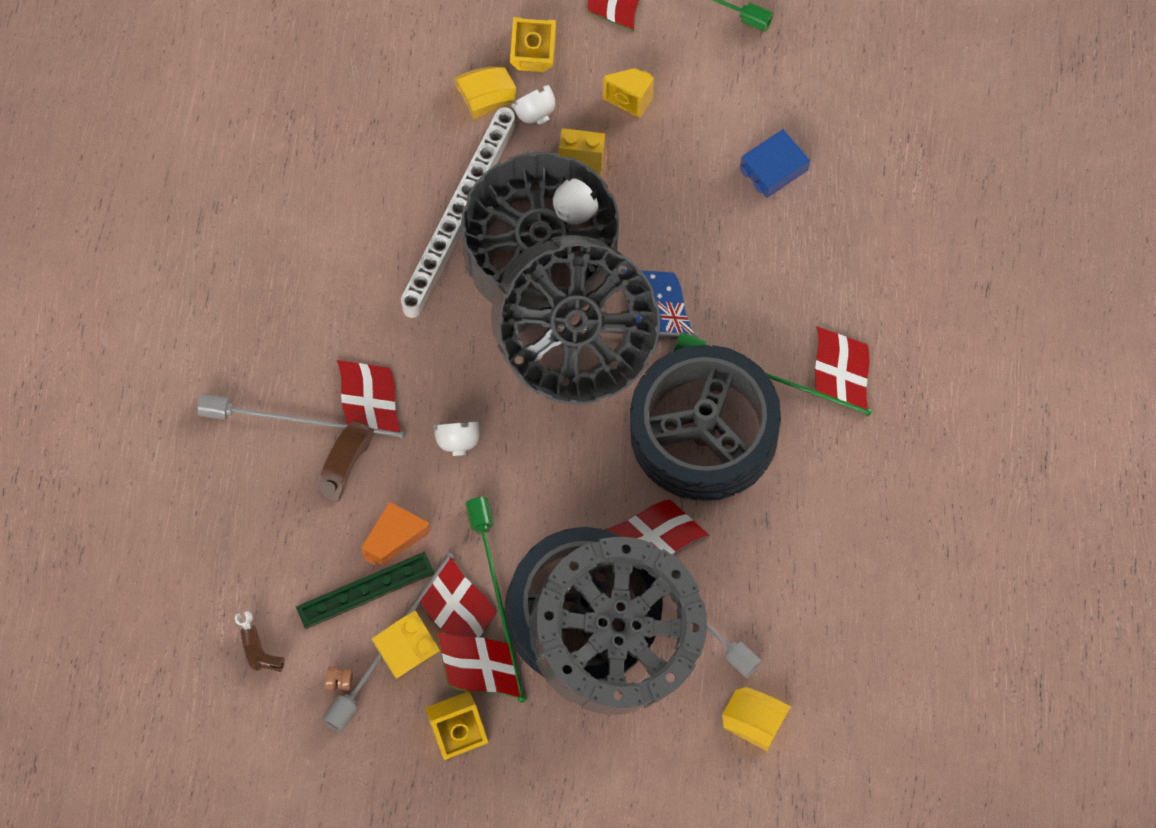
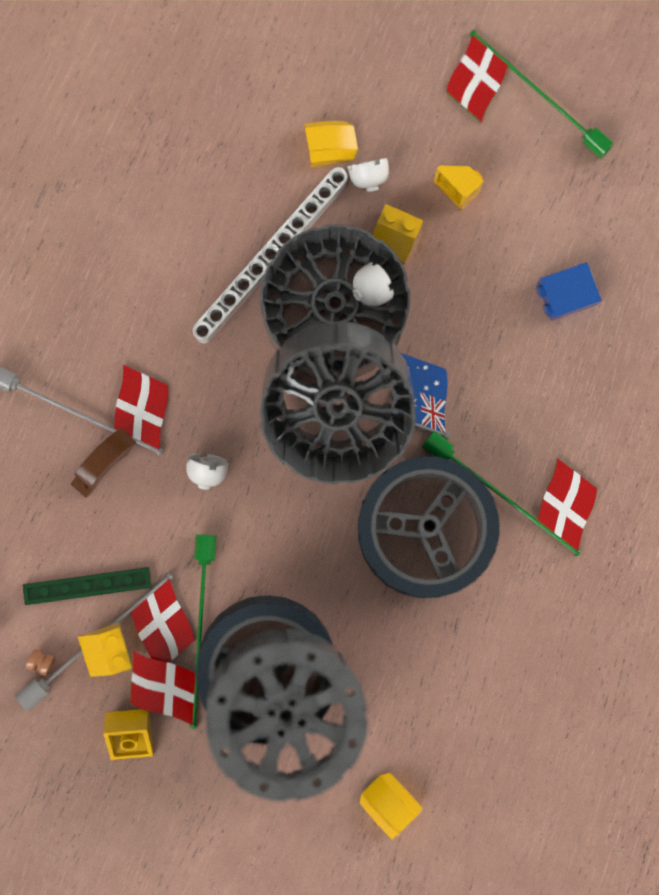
camera: 15 degrees right, 15 degrees up
(393, 534) = (124, 543): orange slope -> none
(533, 44) = (385, 111): yellow slope -> none
(673, 530) = (352, 613): flag -> none

